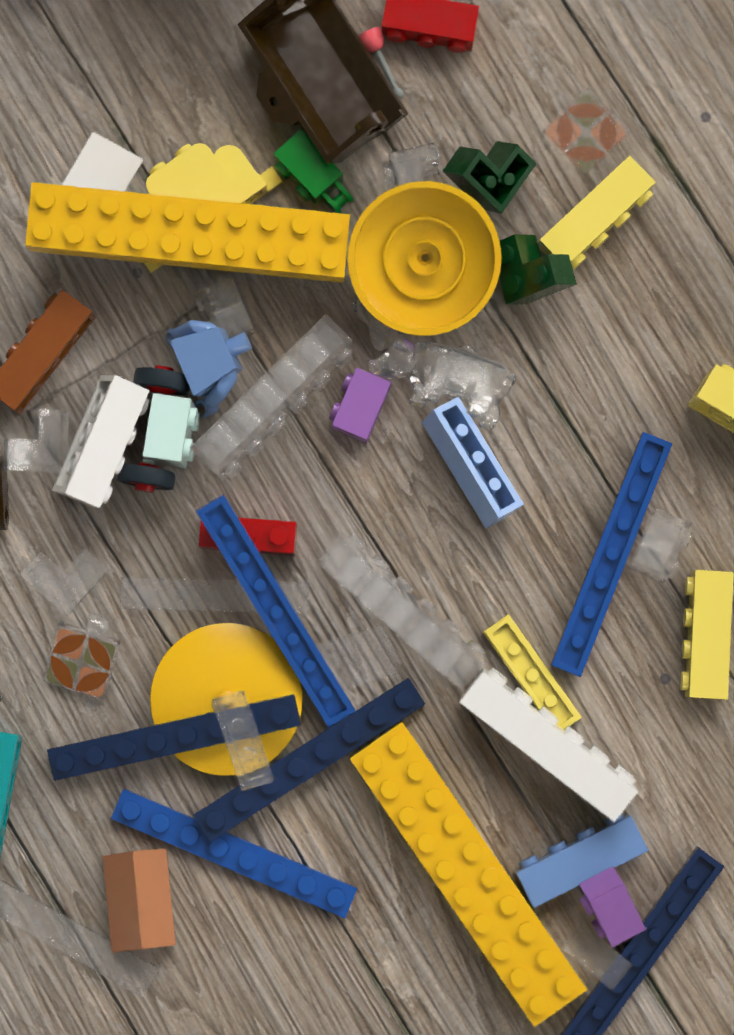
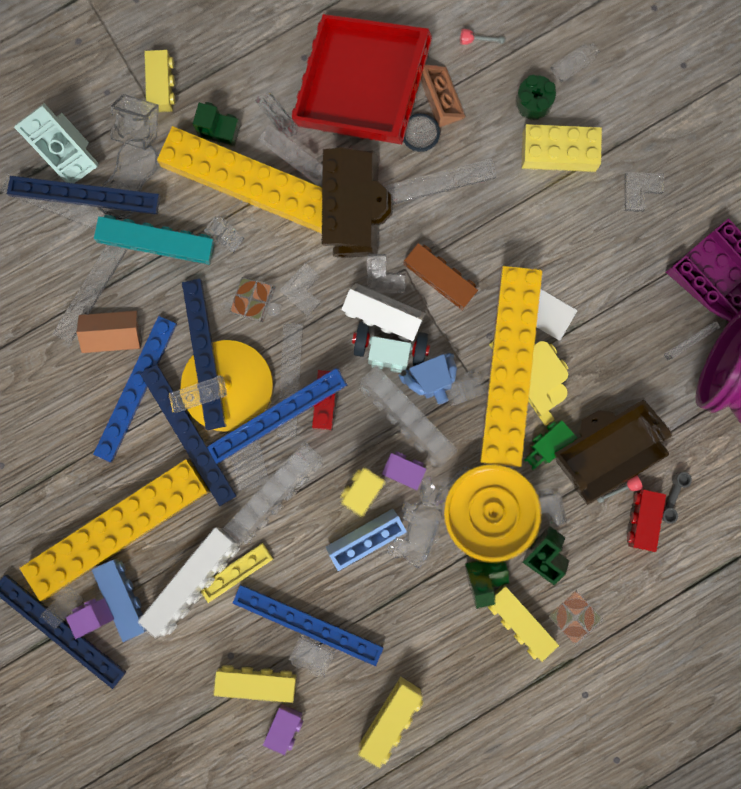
camera: 90 degrees right, 0 degrees up
(394, 464) = (362, 492): none -> light yellow brick

